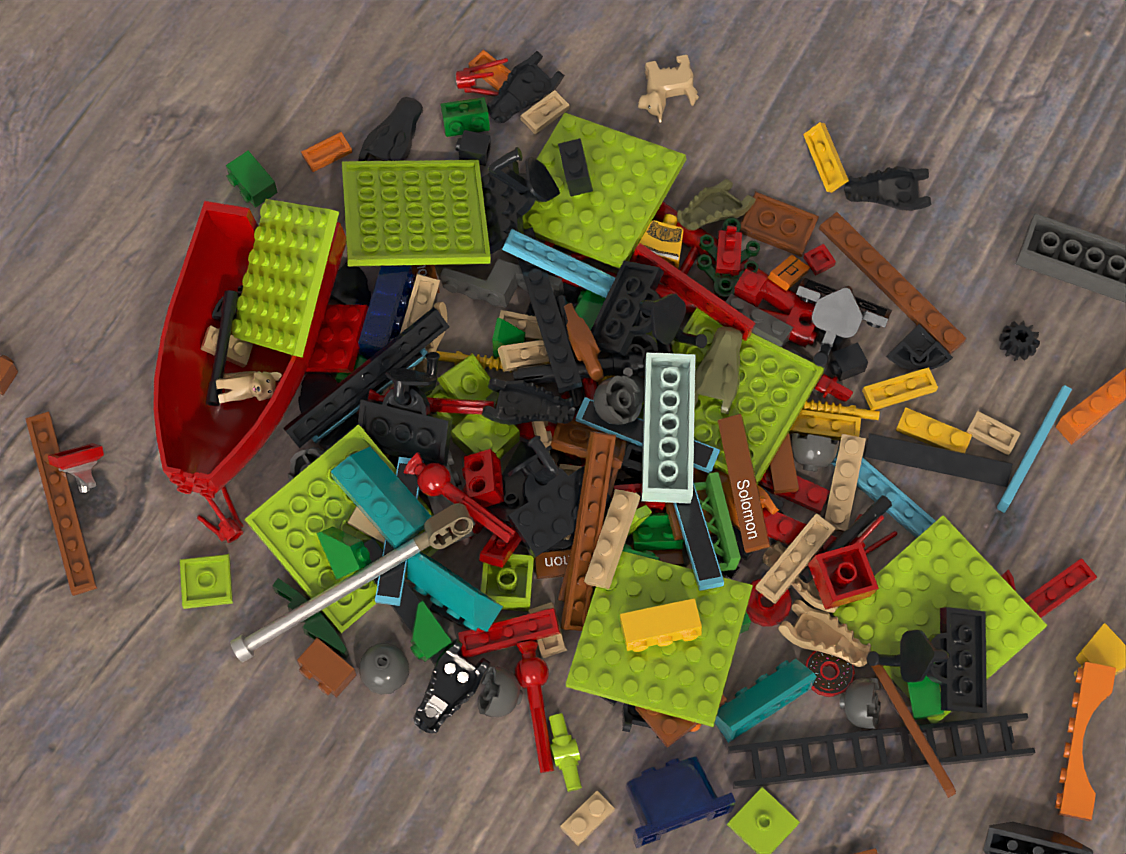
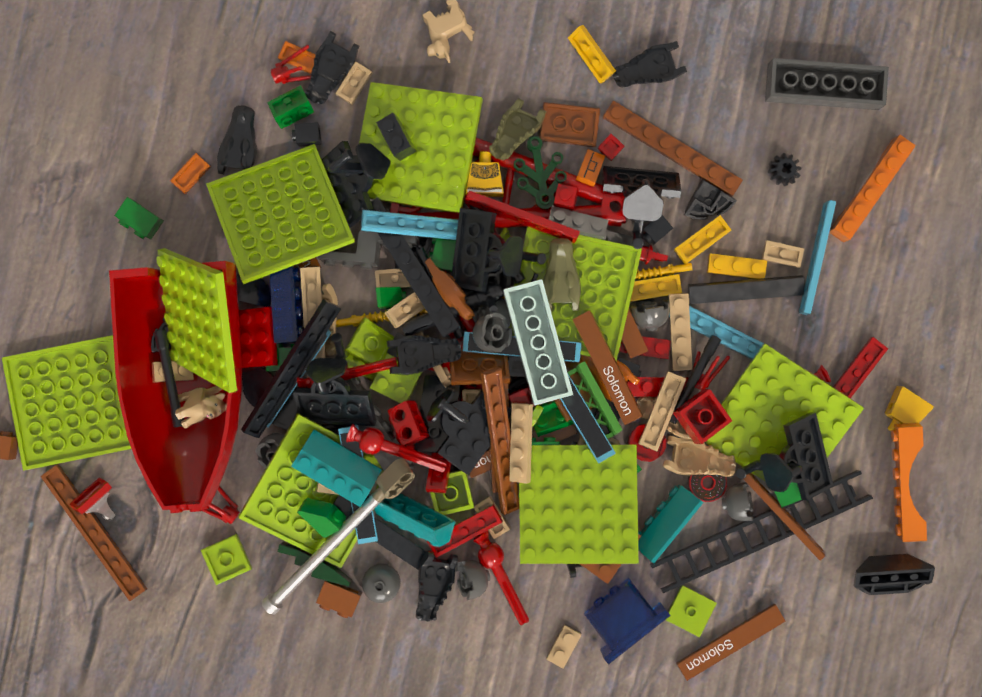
camera: 15 degrees left, 20 degrees up
(90, 350) = (65, 403): none -> lime plate
(427, 634) = (405, 555): green slope -> none
(565, 752) = (533, 605): lime pin -> none
(661, 625) = (578, 503): yellow brick -> none
(728, 251) = (539, 168): red plate -> none

